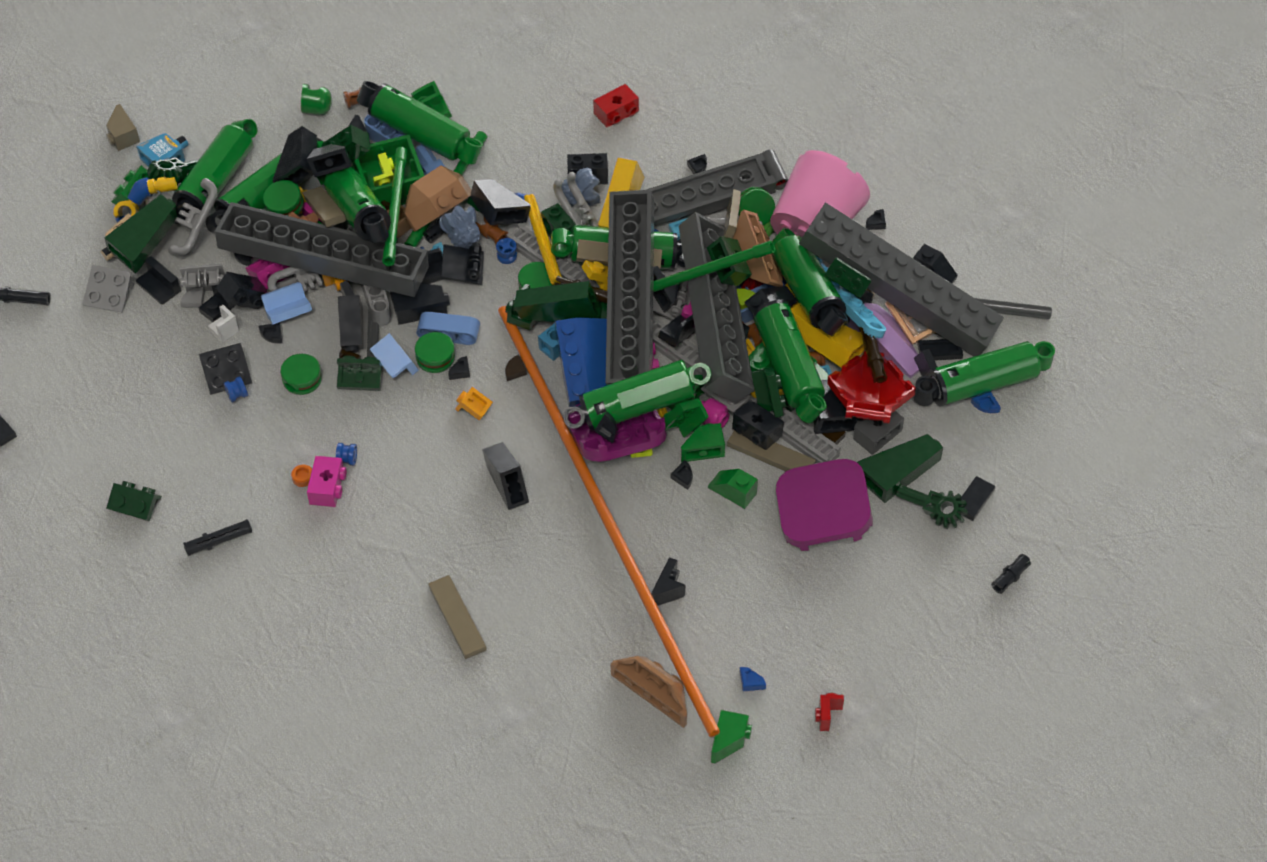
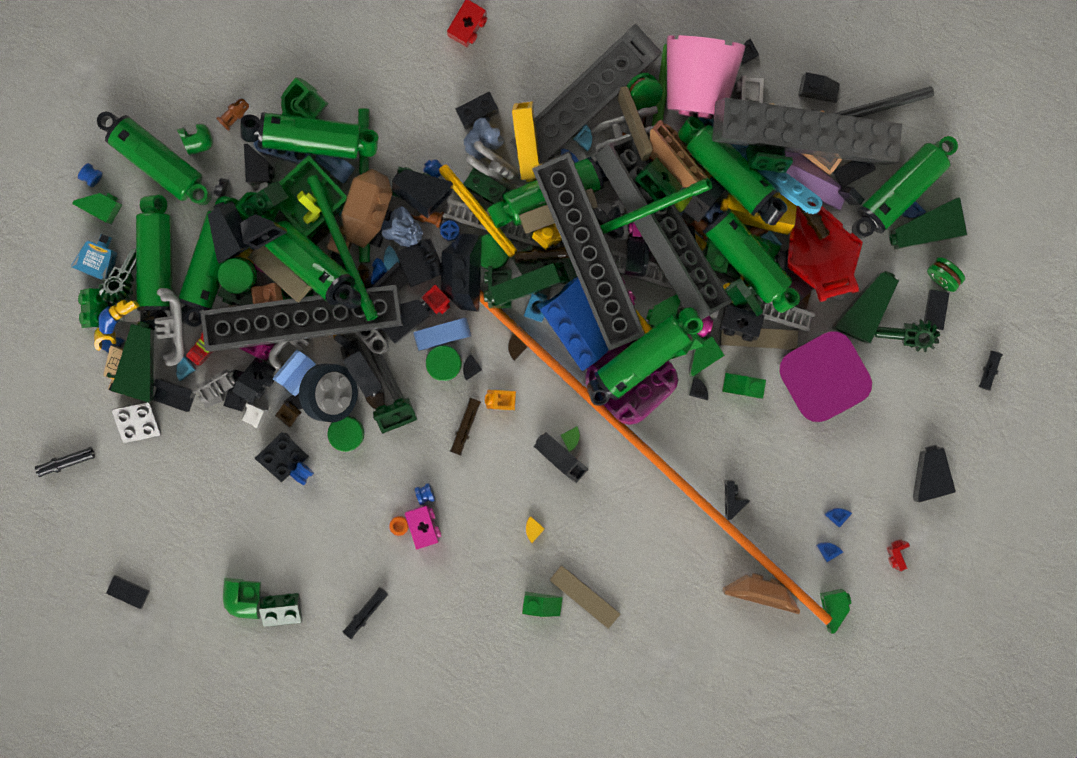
camera: 20 degrees left, 35 degrees up
(101, 472) = (242, 598): none -> green brick
(121, 129) = (42, 248): dark tan slope -> none
(184, 262) = (184, 368): none -> medium azure tile
(194, 117) = (100, 205): none -> green slope
(202, 93) = (90, 175): none -> blue wheel
(211, 255) = (197, 353): none -> red leg
(256, 336) = (288, 414): none -> dark brown tile
(266, 94) = (153, 158): none -> green piece
(306, 323) = (328, 392): none -> wheel
(392, 356) = (413, 384): light blue panel -> none
(405, 426) = (465, 426): none -> dark brown pin
(405, 601) = (541, 605): none -> green slope
(439, 532) = (533, 529): none -> yellow tile
(460, 299) = (437, 300): none -> red bracket
(498, 284) = (462, 271): none -> black wedge
(528, 464) = (571, 438): none -> bright green tile
(607, 427) = (632, 397): black tile -> none
(697, 164) = (568, 58): black tile -> none
(777, 650) = (838, 516): none -> blue tile
(901, 648) = (933, 475): none -> black slope
(996, 462) = (946, 274): none -> green head
(998, 420) = (934, 226): none -> dark green slope

